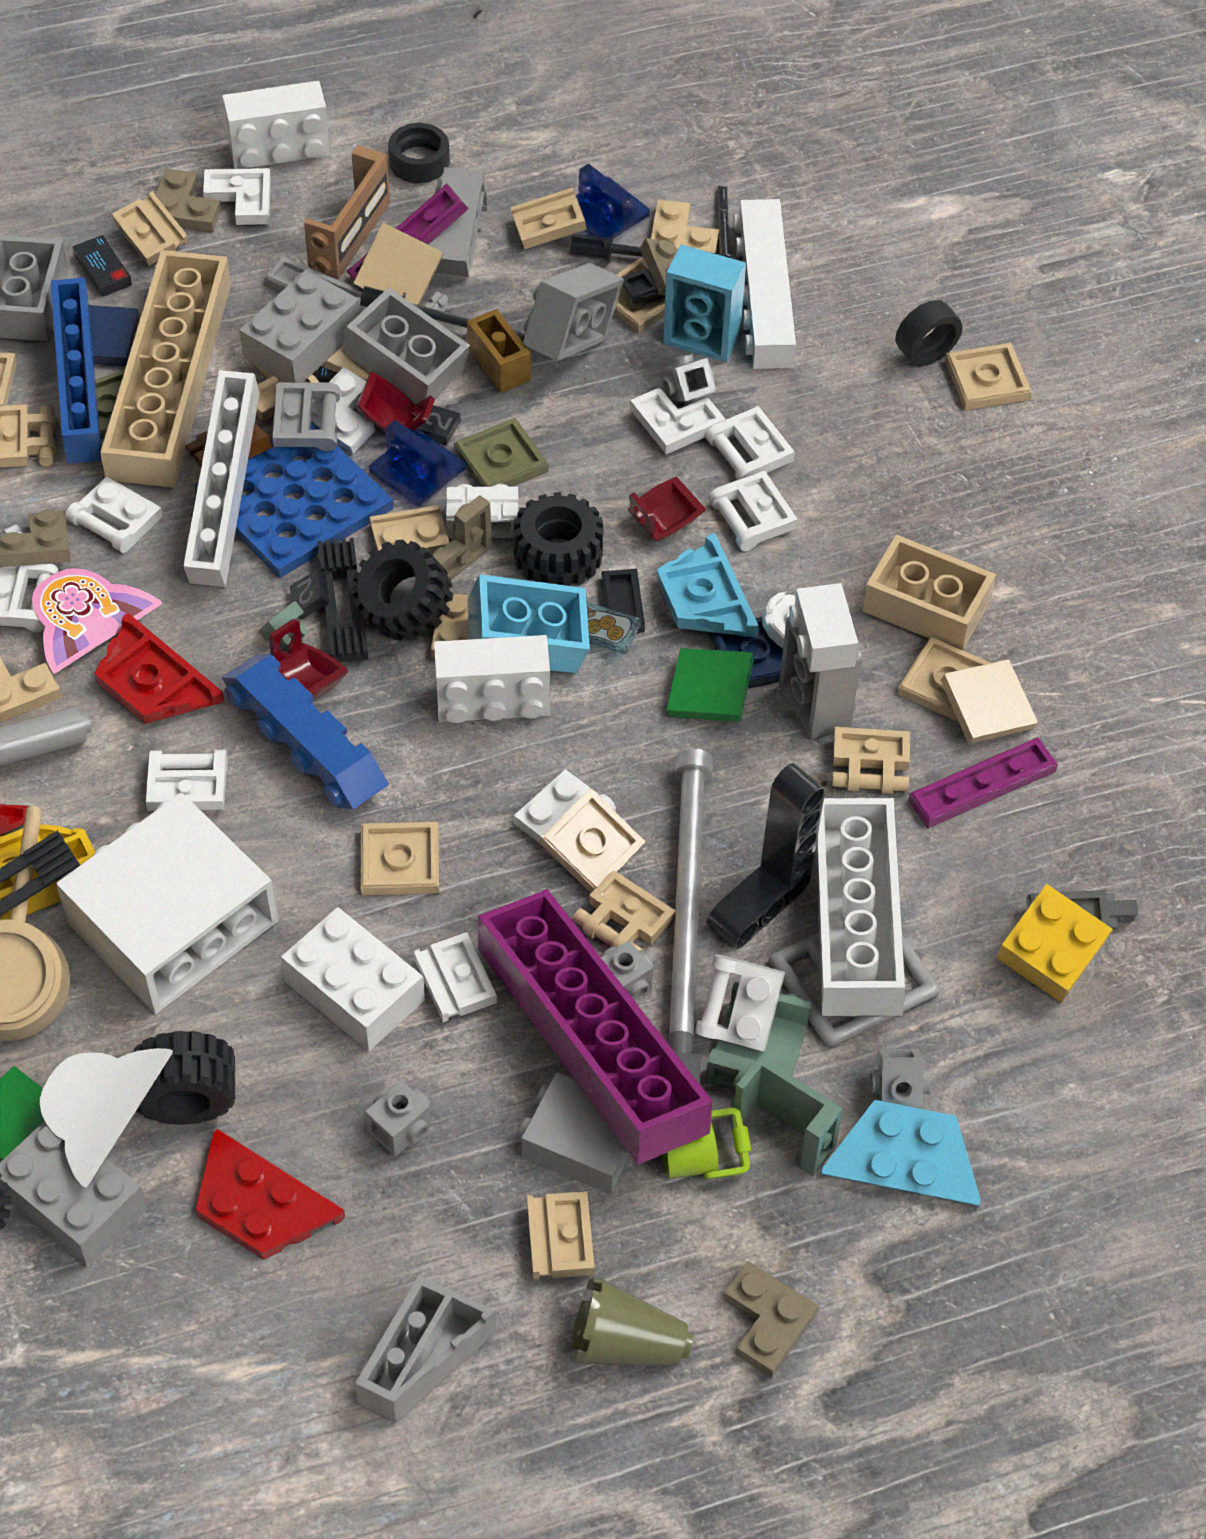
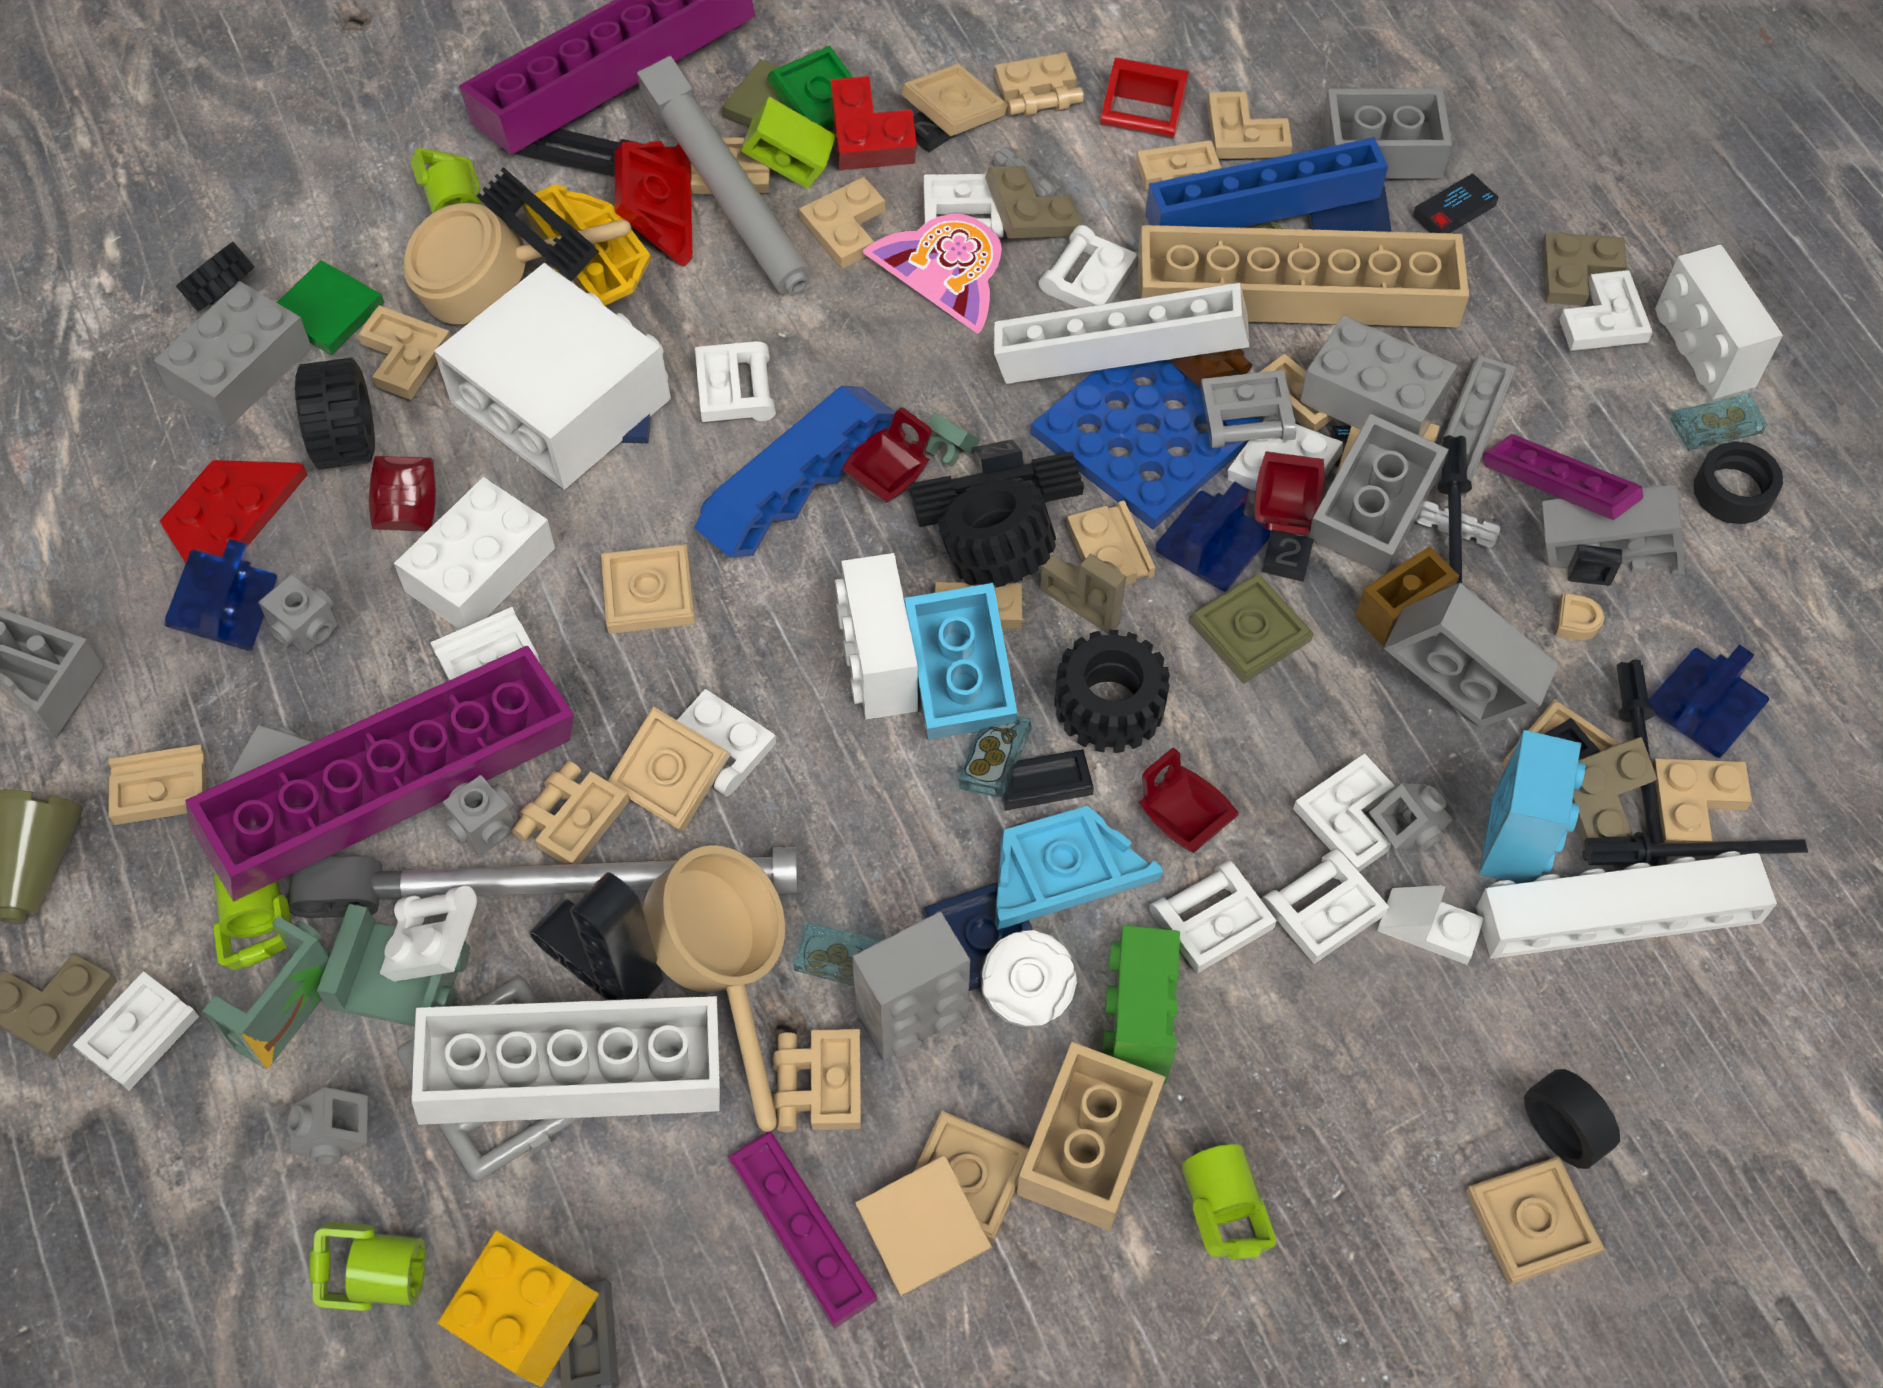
camera: 85 degrees right, 5 degrees up
(88, 1032) = (409, 350): none -> tan plate
(93, 1100) = (293, 337): white sticker -> none
(149, 228) = (1518, 235): tan plate -> none
(152, 676) = (869, 329): red wing -> none
(266, 1040) = (402, 493): none -> dark red piece
(334, 246) = (1587, 419): medium nougat panel -> none
(346, 142) = (1718, 422): none -> clear light blue tile
(367, 1184) = (221, 597): none -> clear blue bracket
(399, 264) = (1513, 473): tan tile -> none
(481, 244) = (1594, 565): none -> black tile
(502, 504) = (1151, 607): white brick -> none
(520, 266) = (1578, 617): none -> tan tile
(548, 218) = (1663, 634): tan plate -> none
(710, 684) = (913, 880): green tile -> none
(735, 797) = (716, 931): none -> tan piece
(767, 388) = (1426, 922): none -> white slope
(767, 740) = (829, 953): none -> clear light blue tile
(802, 1237) = (136, 1031): none -> white plate
(824, 627) = (909, 947): white brick -> none
(826, 550) = (1143, 998): none -> bright green wedge
(907, 1153) = (232, 1144): medium azure wing -> none
(971, 527) = (1223, 1194): none -> lime piece
(1016, 1048) = (377, 1269): none -> lime piece

